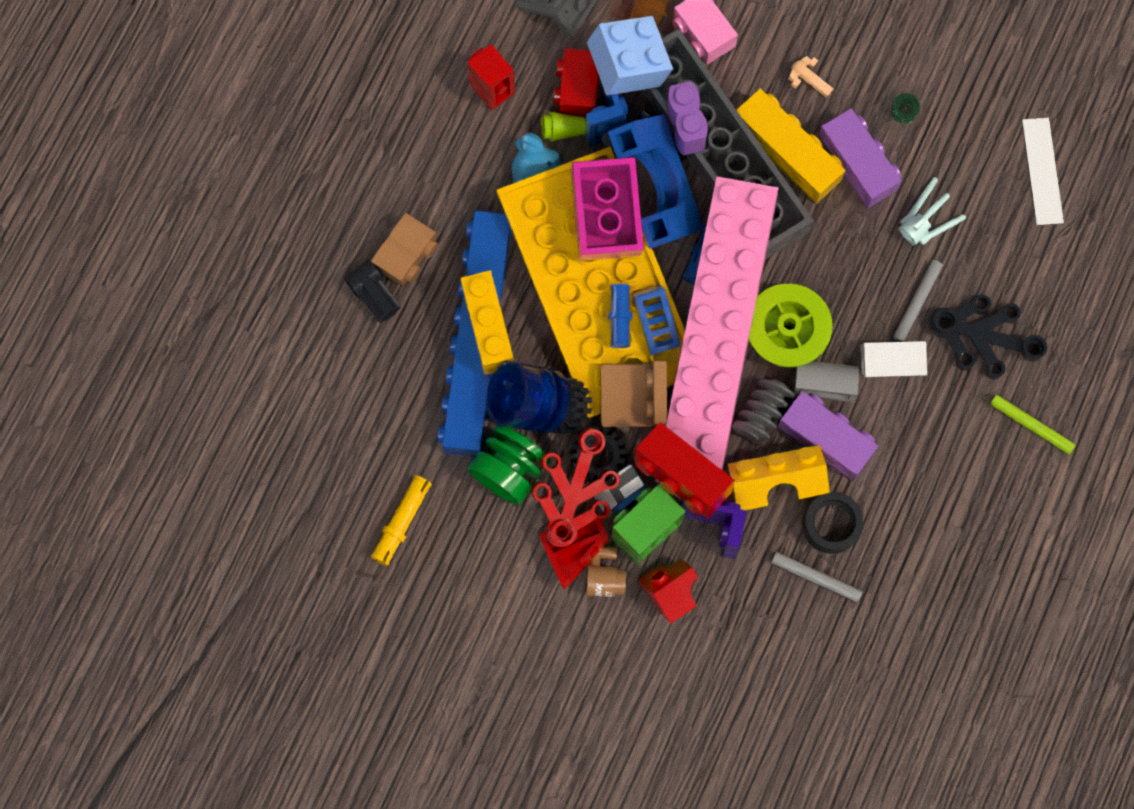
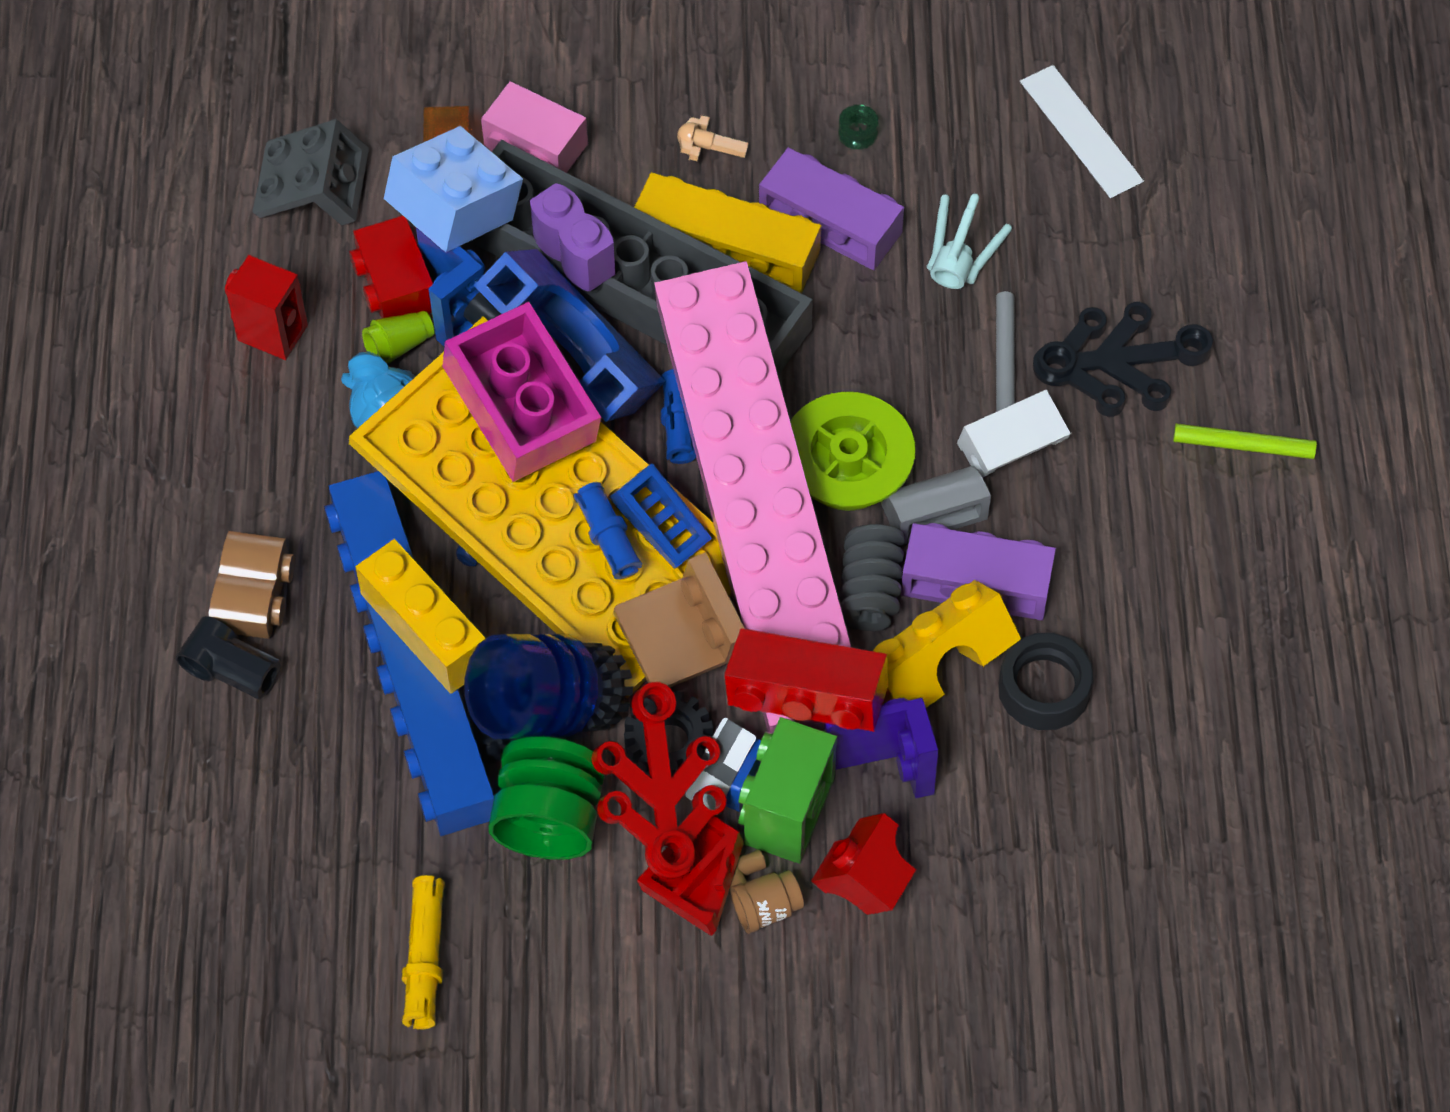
camera: 25 degrees left, 15 degrees down
(817, 577) = (1062, 764): light grey bar -> none

